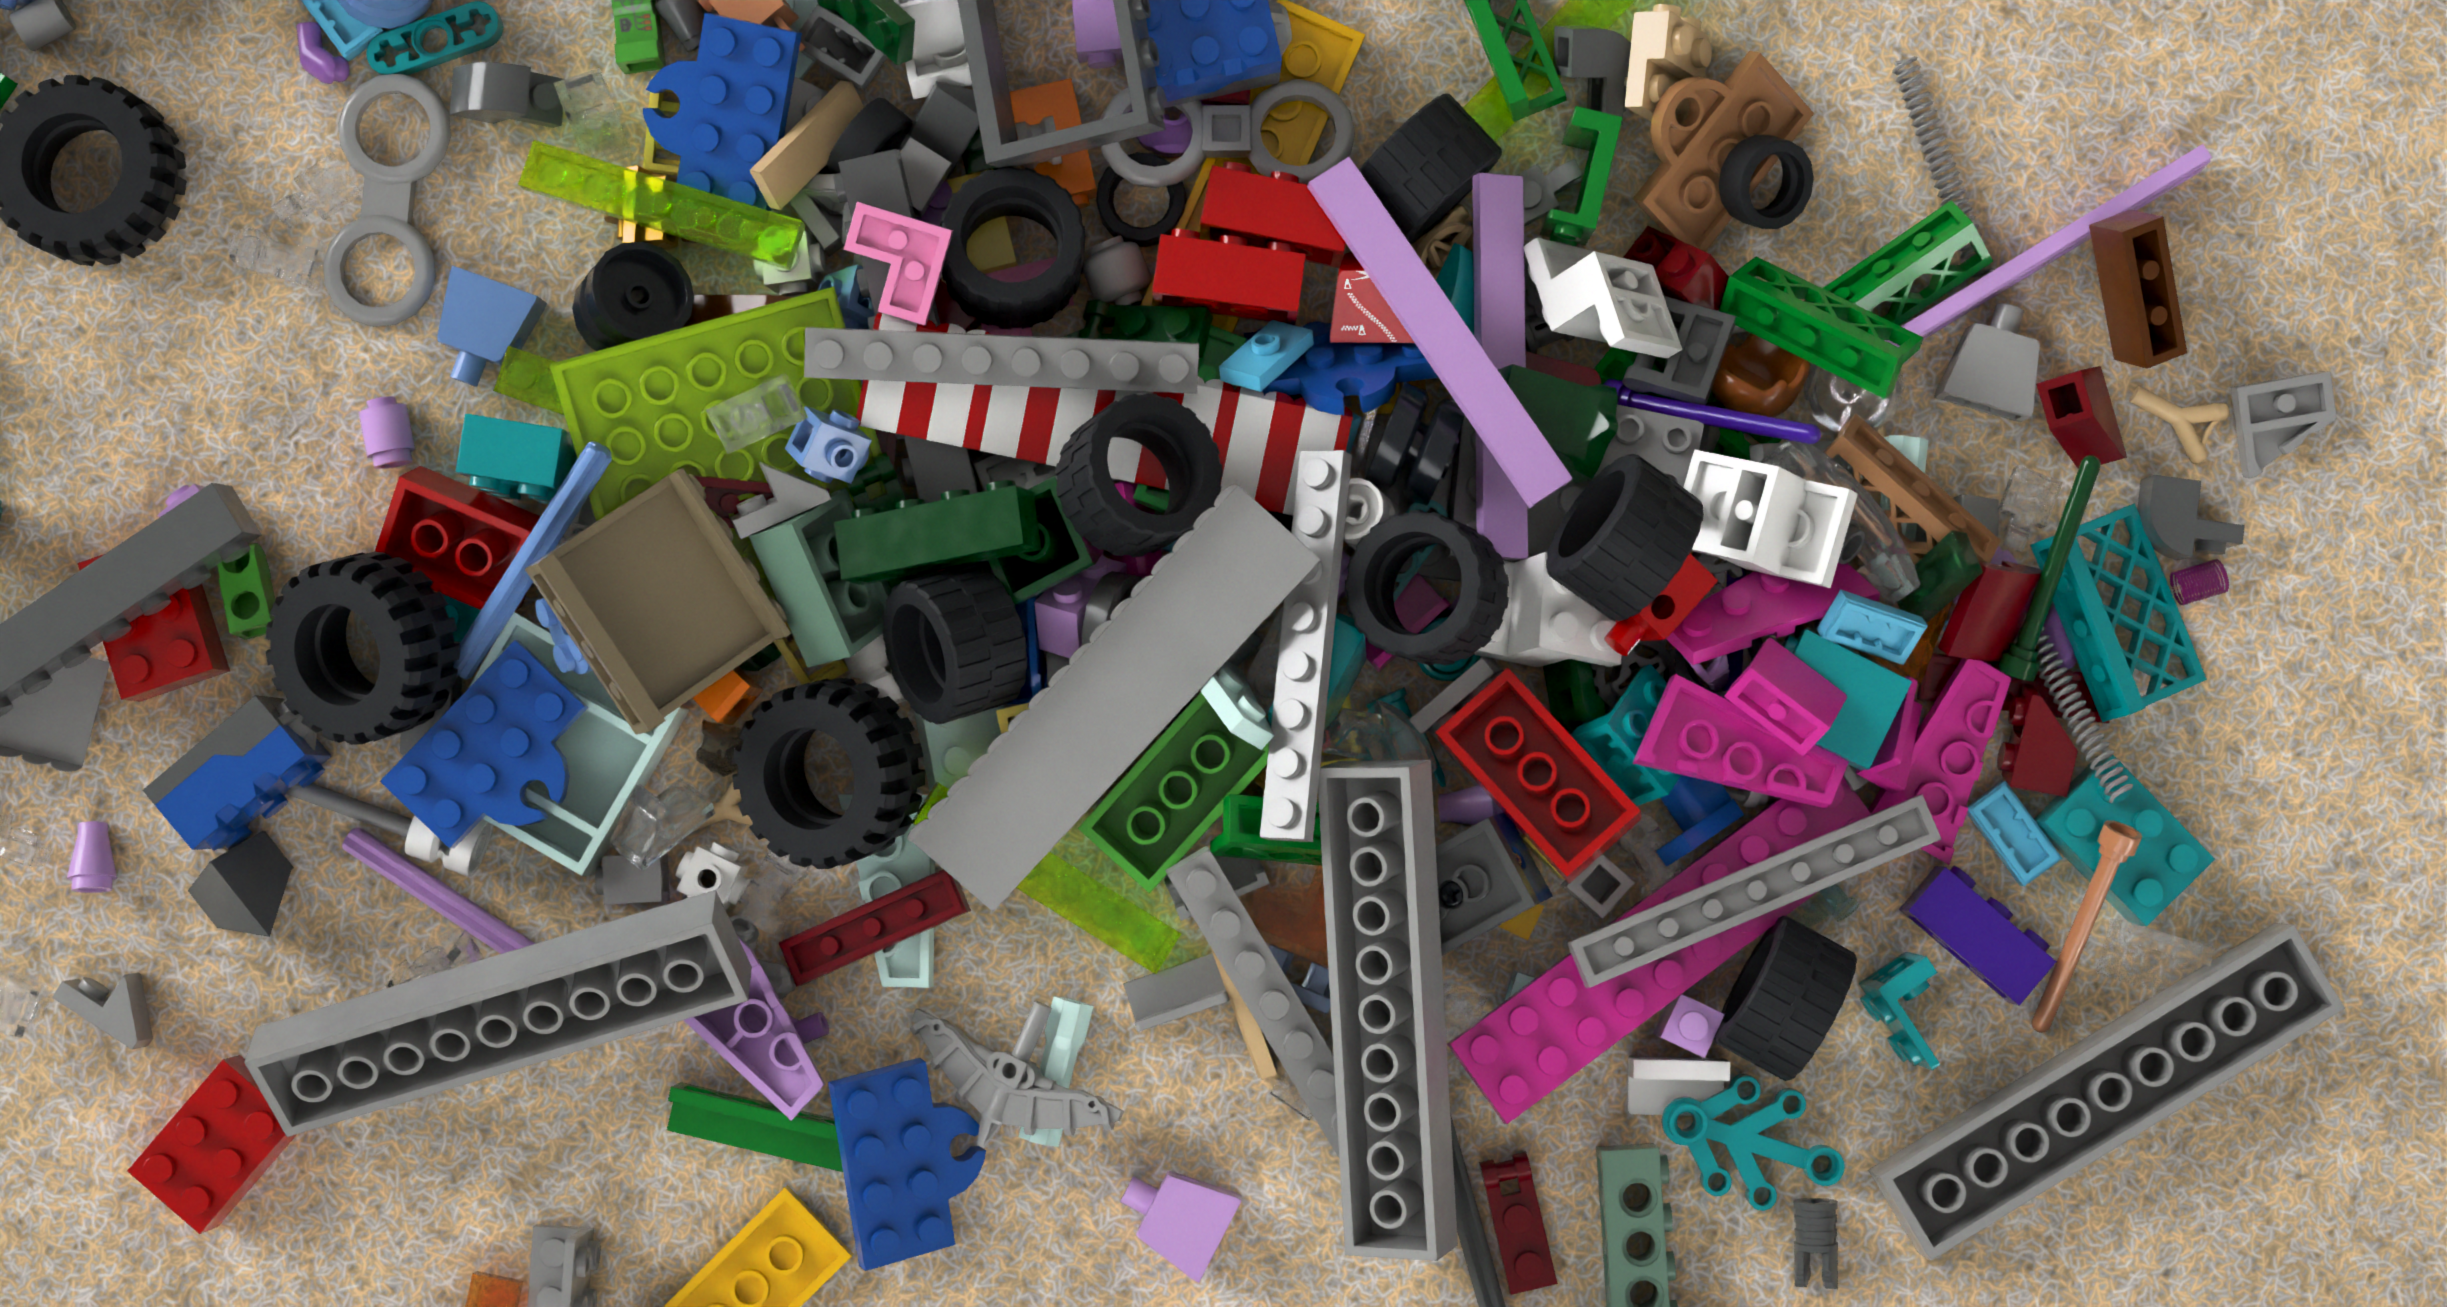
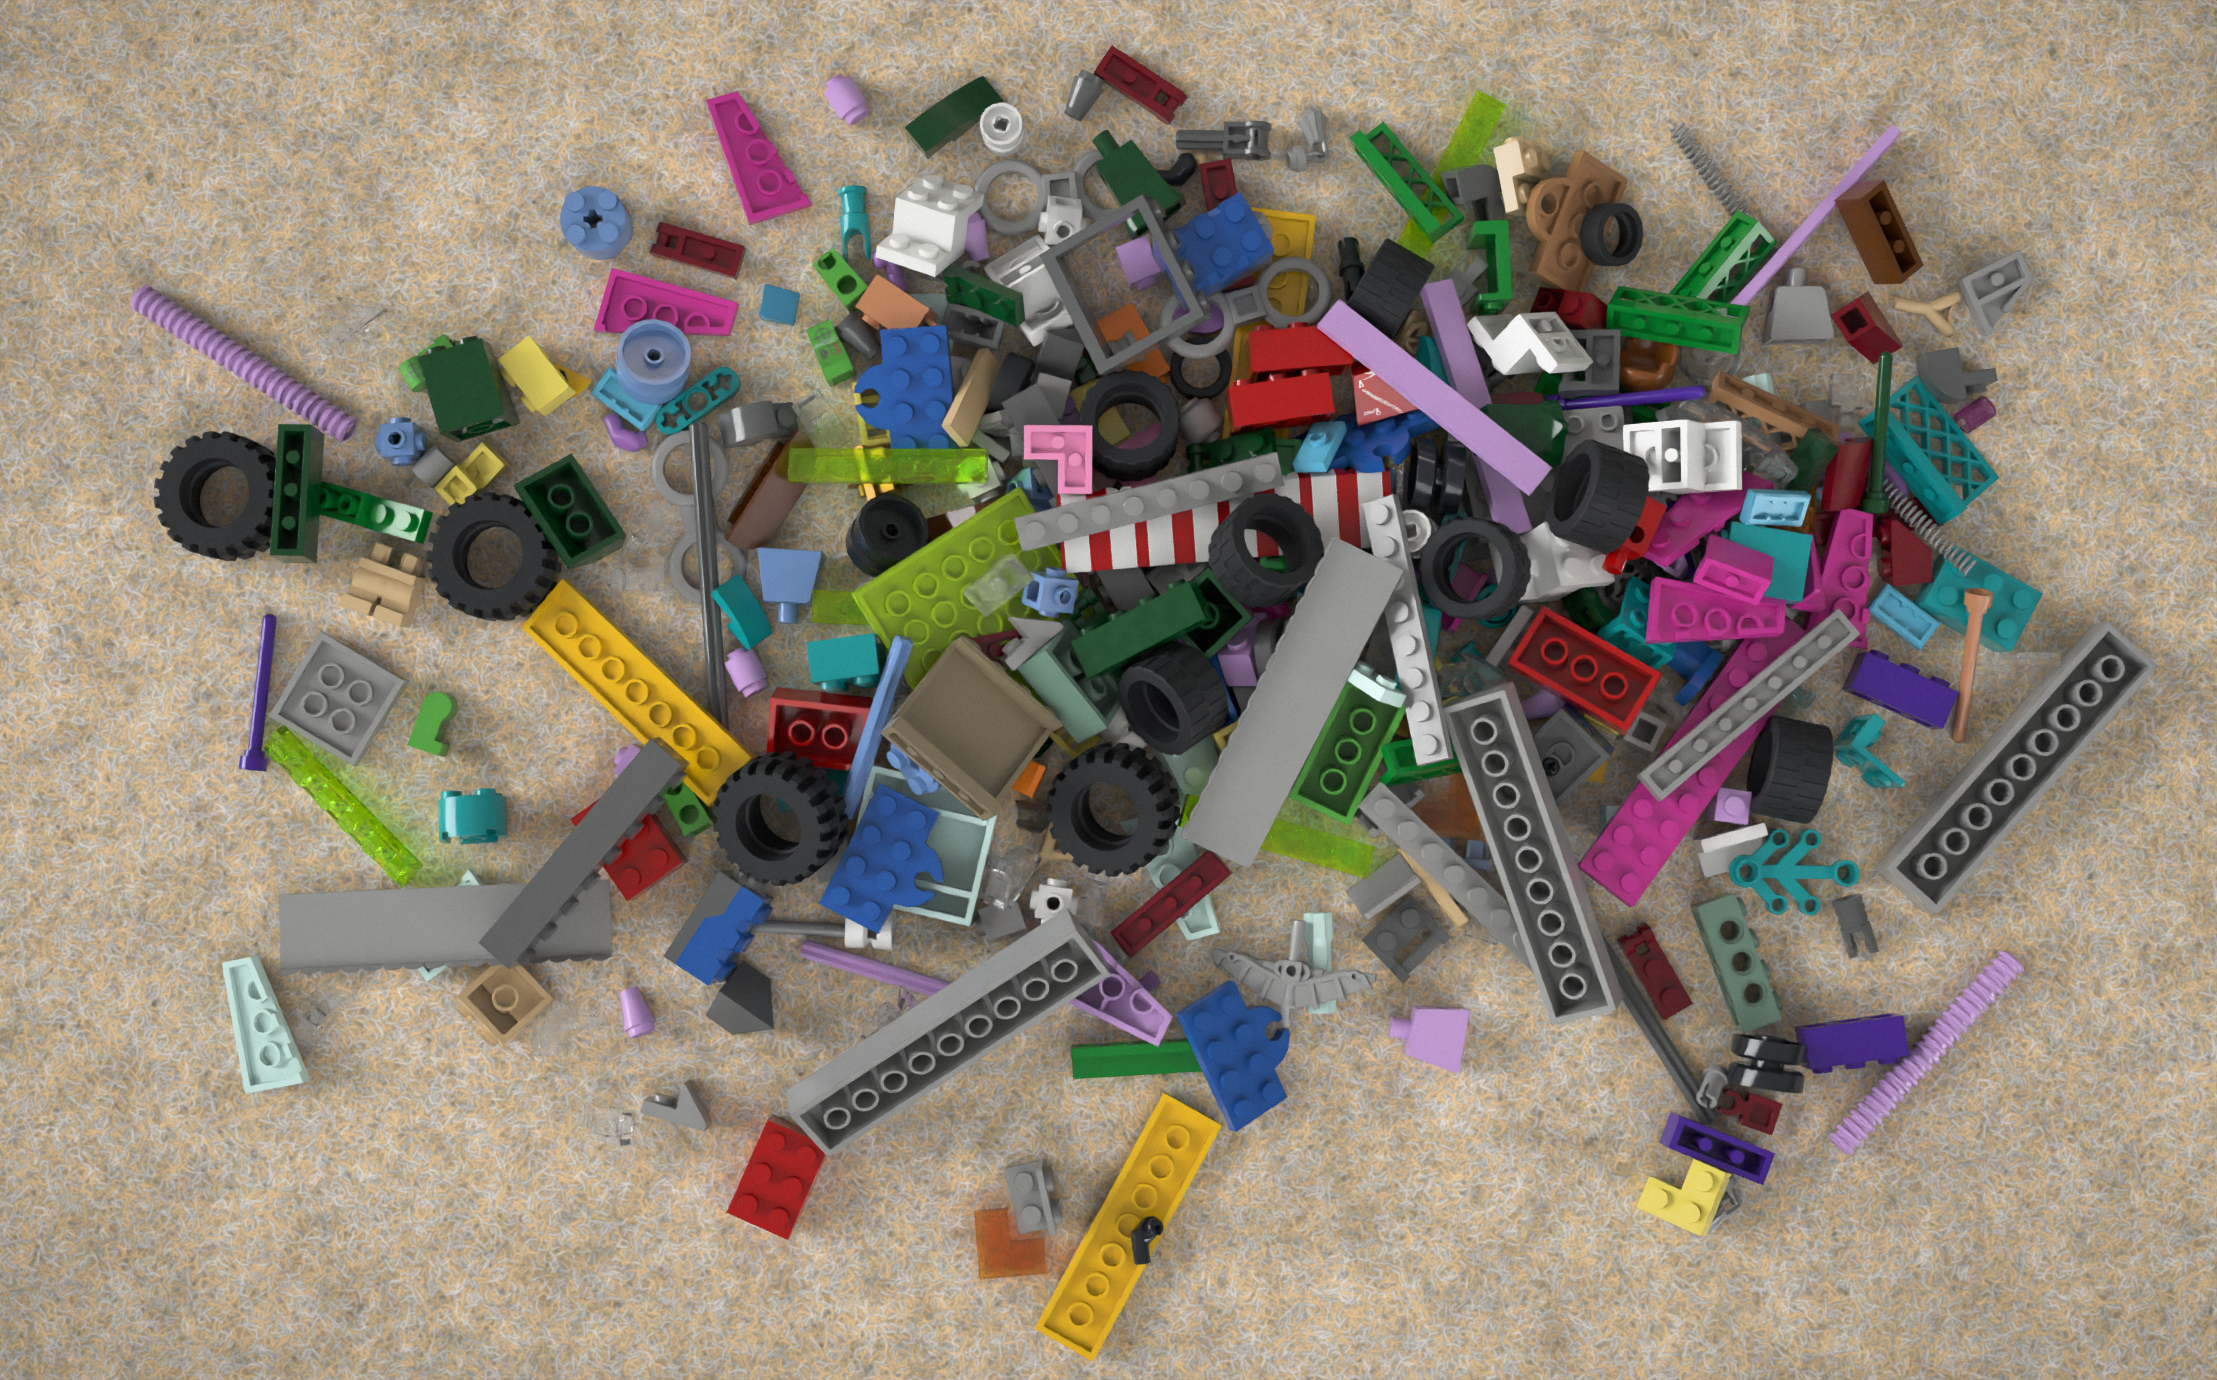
camera: 15 degrees left, 0 degrees up
(97, 49) = (472, 475): none -> light yellow slope
(206, 141) = (571, 513): none -> dark green slope
(224, 407) = (635, 687): none -> yellow plate
(366, 317) = (708, 572): none -> dark grey axle
(408, 348) = (746, 615): none -> teal slope
(486, 203) = (767, 497): none -> reddish brown brick
(1180, 1059) = (1397, 930): none -> dark grey plate
(1392, 112) = (1351, 267): none -> black pin

